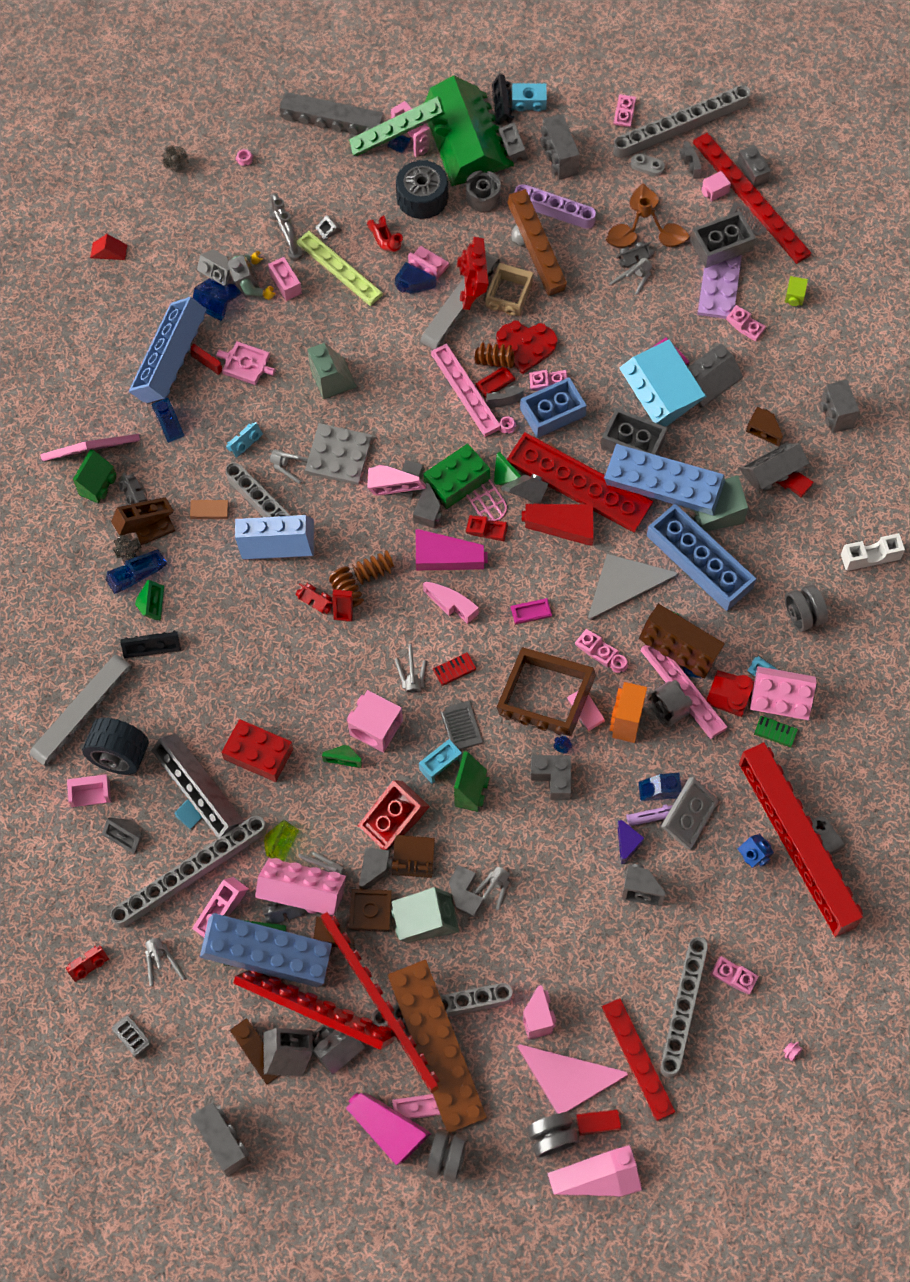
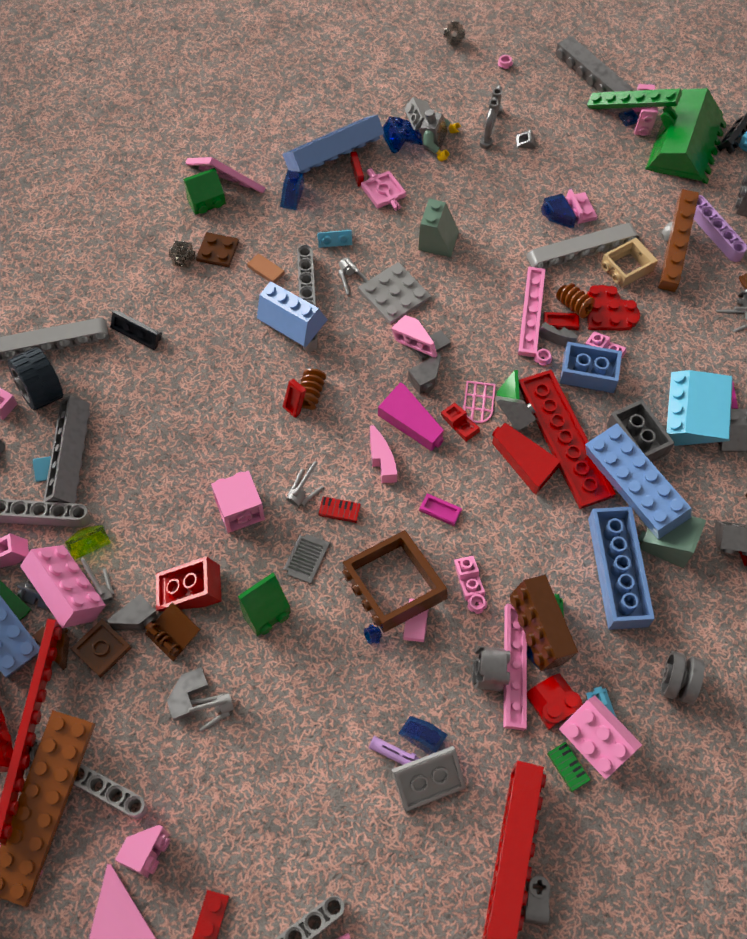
camera: 35 degrees right, 5 degrees down
(108, 248) = (358, 62): red slope -> none
(130, 485) = (225, 215): flat silver hinge -> none
(135, 570) = (174, 273): clear blue slope -> none
(140, 515) = (210, 236): reddish brown slope -> none
(151, 600) = (166, 301): green slope -> none
(257, 750) = (134, 459): red brick -> none
(285, 278) = (462, 152): bright pink panel -> none
(308, 594) = (280, 374): red hinge -> none
(339, 268) = (510, 172): yellowish green tile -> none
(343, 756) = (193, 510): green slope -> none
(373, 567) = (343, 389): dark orange piece -> none
(383, 236) = (562, 167): red piece -> none
(422, 189) = (618, 154): black wheel -> none
(424, 915) = (136, 688): slope -> none
(439, 760) = (260, 568): medium azure panel -> none
(457, 476) = (469, 366): green brick -> none
(474, 269) = (607, 227): red bracket -> none
(483, 191) = (666, 183): flat silver brick -> none
(513, 142) = (719, 165): flat silver hinge -> none
(553, 769) = (346, 652): flat silver brick -> none
(623, 581) = (538, 541): light grey tile -> none
(627, 712) = (445, 647): orange brick -> none
(628, 841) = (355, 760): dark purple slope -> none
(642, 886) = (328, 806): flat silver slope -> none
(756, 851) = (460, 862): blue brick -> none

